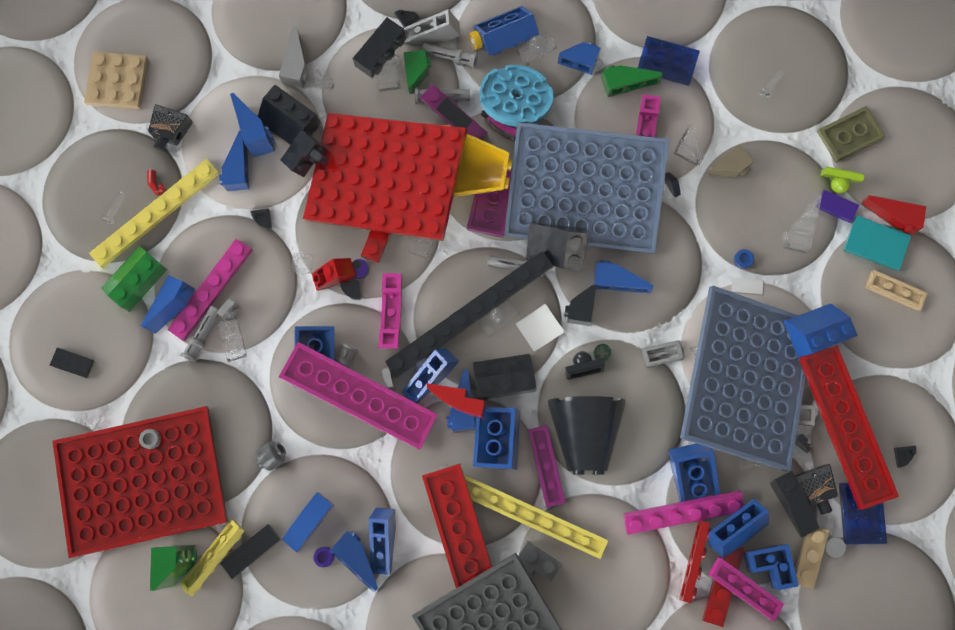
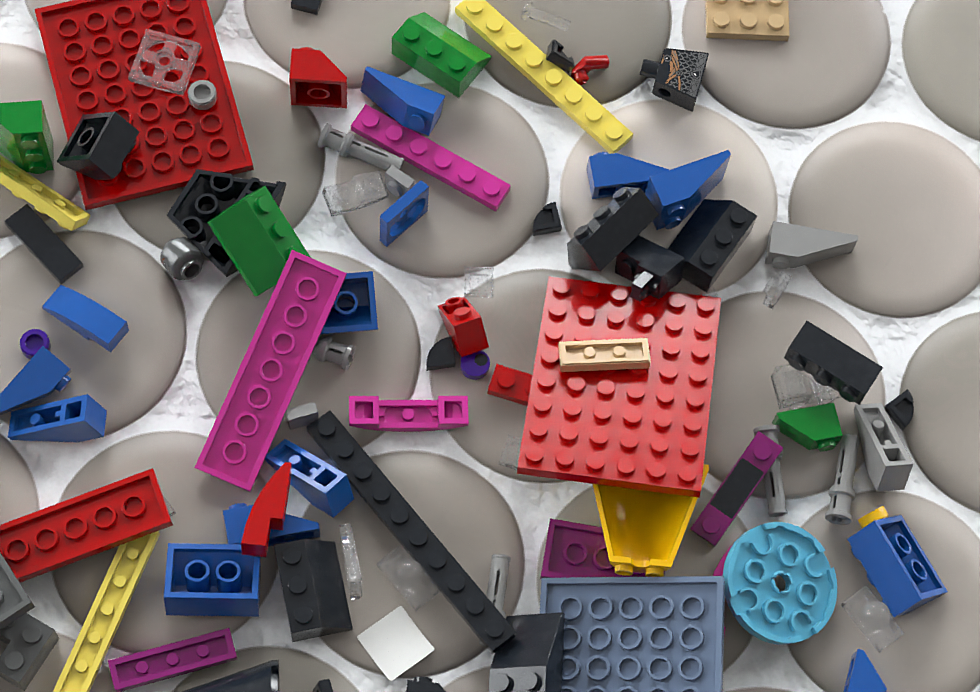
camera: 75 degrees right, 10 degrees down
(107, 459) = (157, 80): none -> clear piece
(145, 202) = (557, 56): none -> black tile
(147, 360) = (316, 80): none -> red slope
(183, 511) = (99, 145): none -> black slope
(242, 425) = (204, 199): none -> black wedge
(252, 306) = (404, 213): none -> blue piece
(265, 401) = (257, 239): none -> green slope
(278, 173) = (610, 230): none -> black slope
(365, 183) = (604, 355): none -> tan tile
(491, 350) = (350, 561): none -> clear piece

